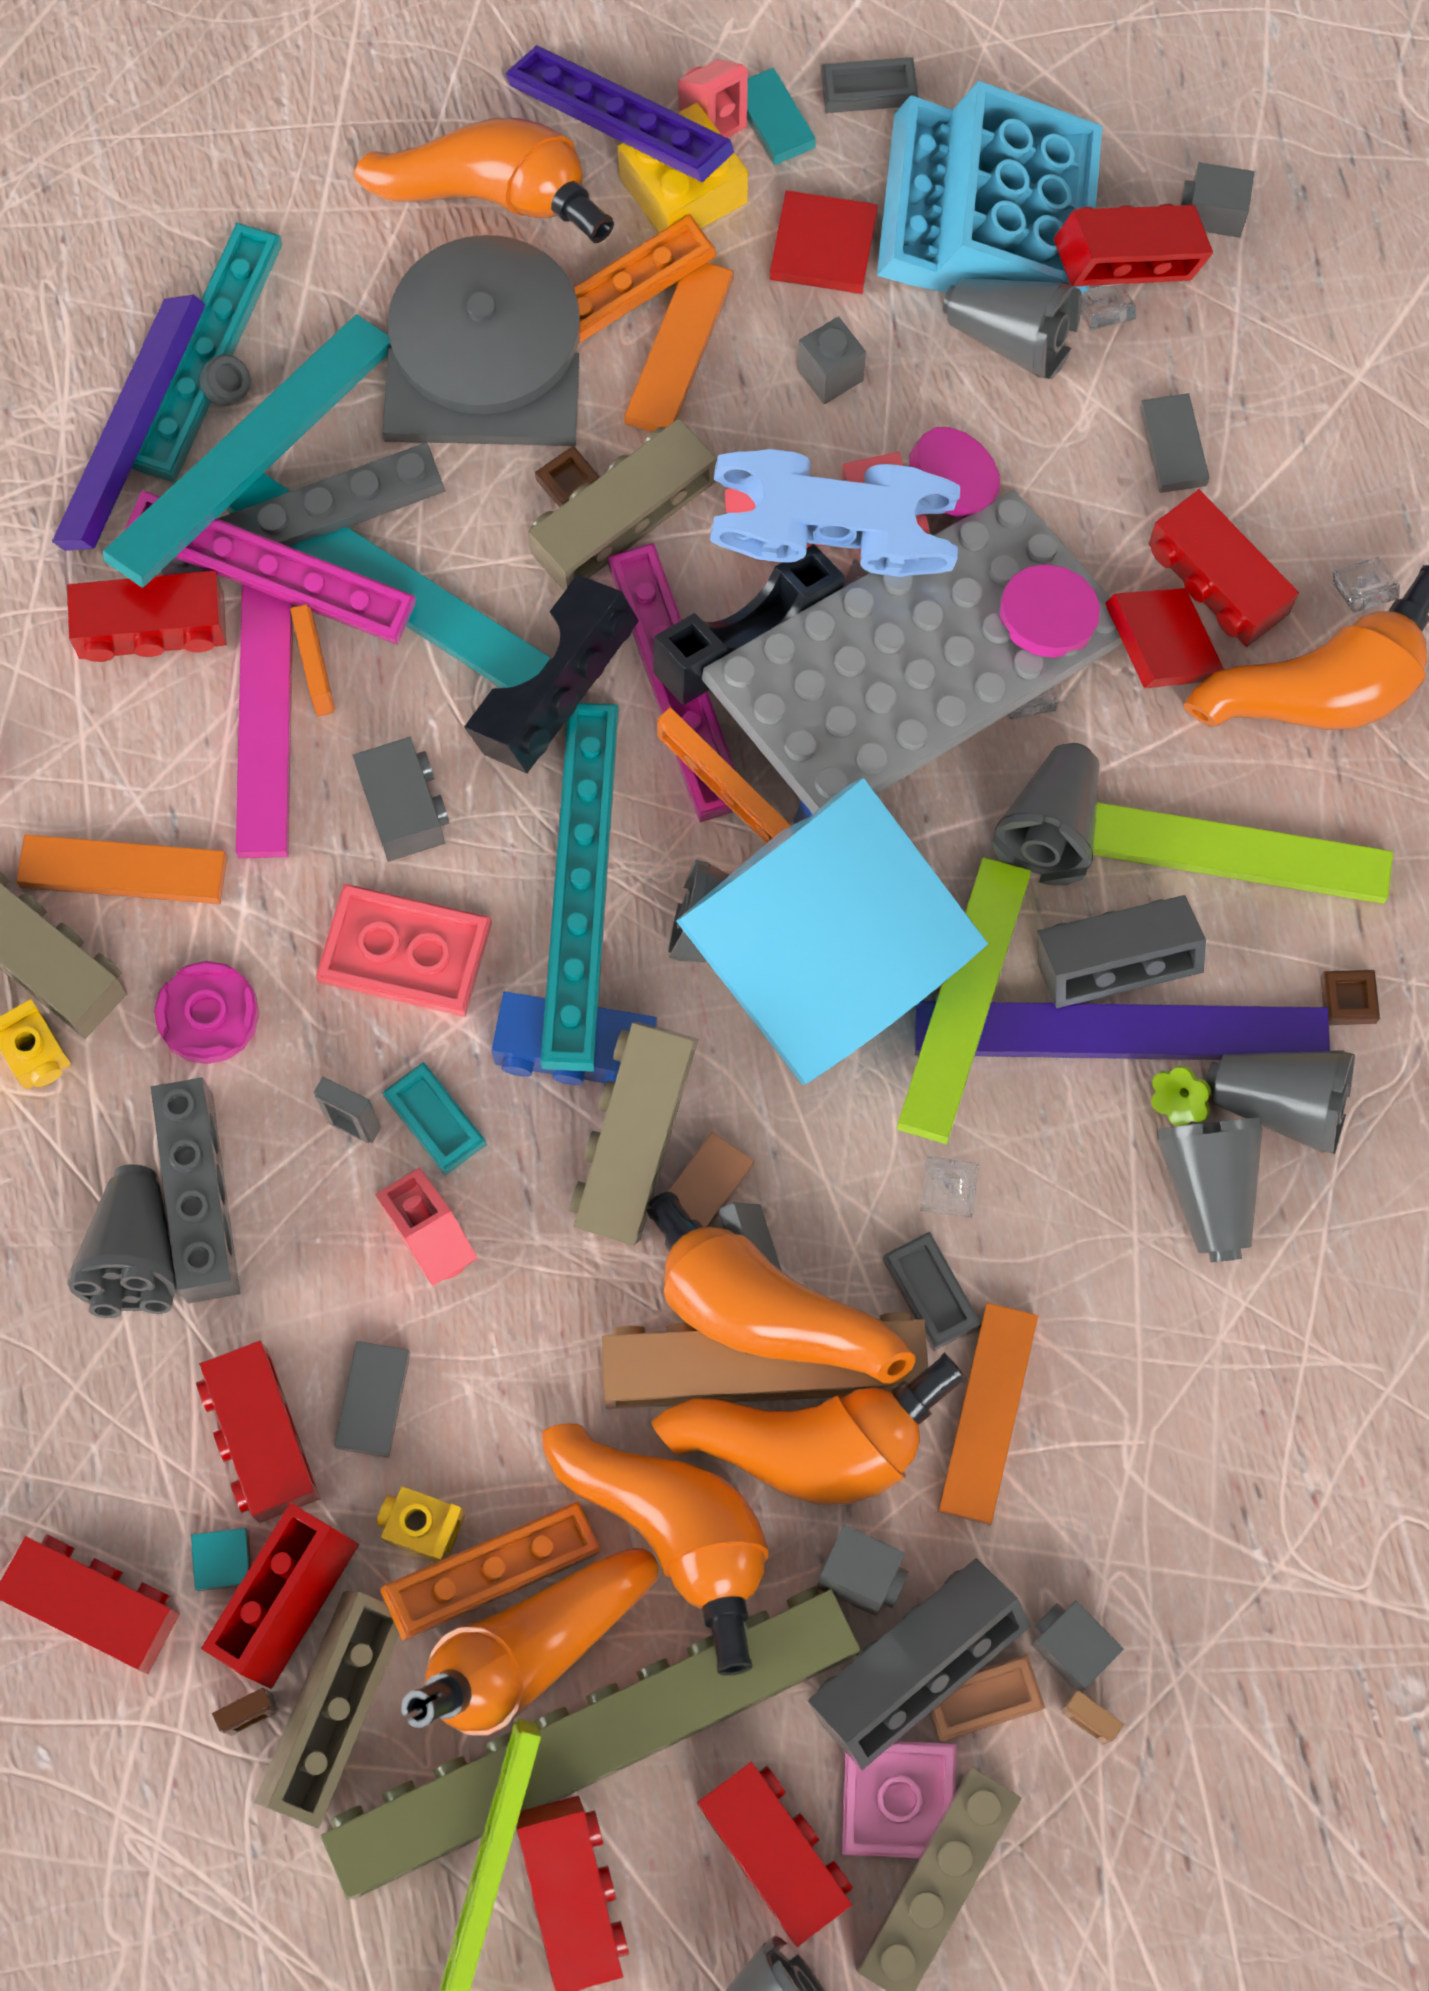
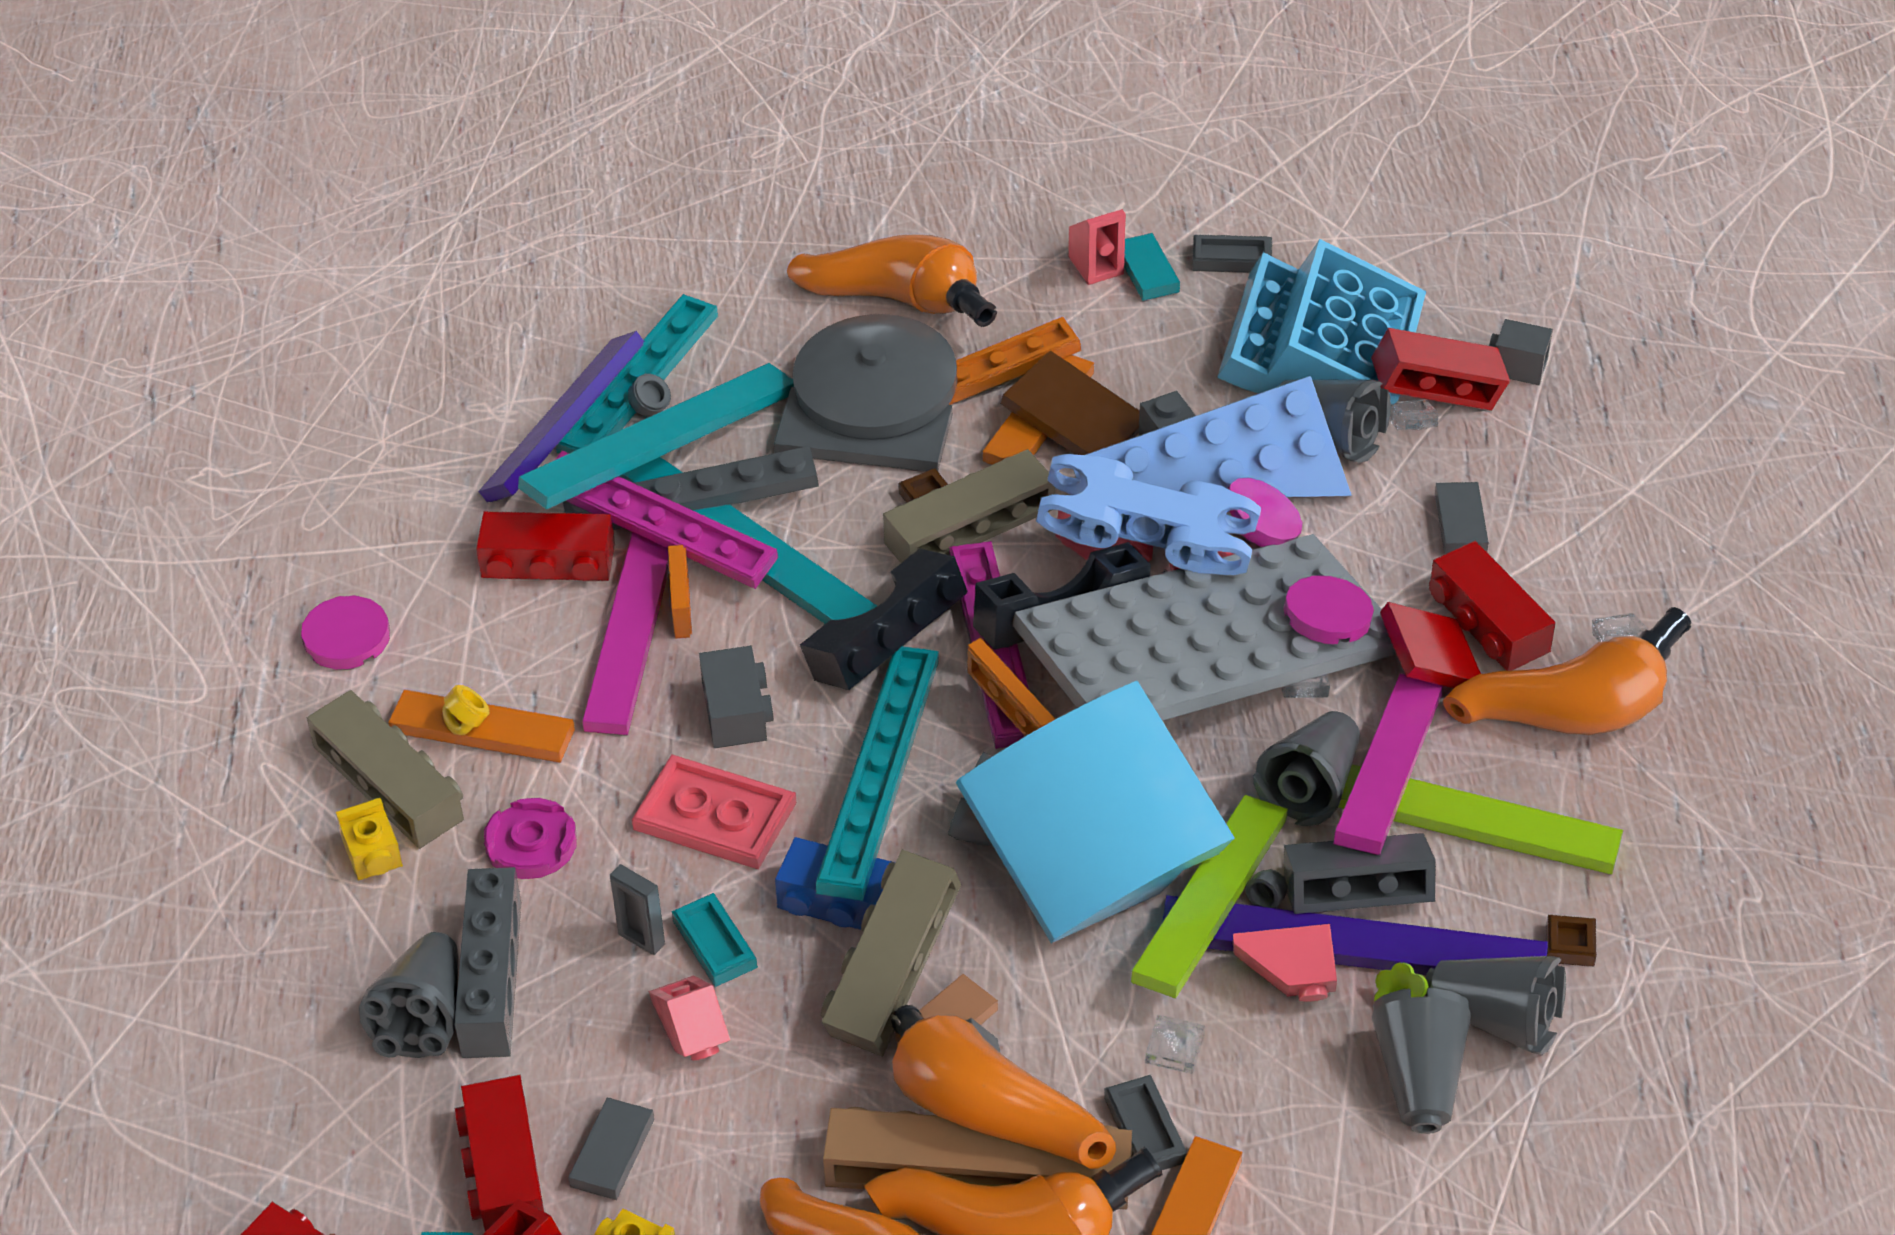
camera: 10 degrees right, 25 degrees down
(101, 862) = (466, 707): none -> yellow tile
(620, 113) = (1016, 241): dark purple tile -> none
(671, 195) = (1065, 285): yellow brick -> none
(720, 346) = (1071, 407): none -> reddish brown tile
(823, 242) = (1175, 353): red tile -> none
(944, 375) = (1264, 437): none -> light blue wing
(1023, 979) = (1267, 889): none -> dark grey hinge
(1065, 1074) = (1291, 959): none -> coral slope
(1136, 810) = (1388, 765): none -> dark pink tile

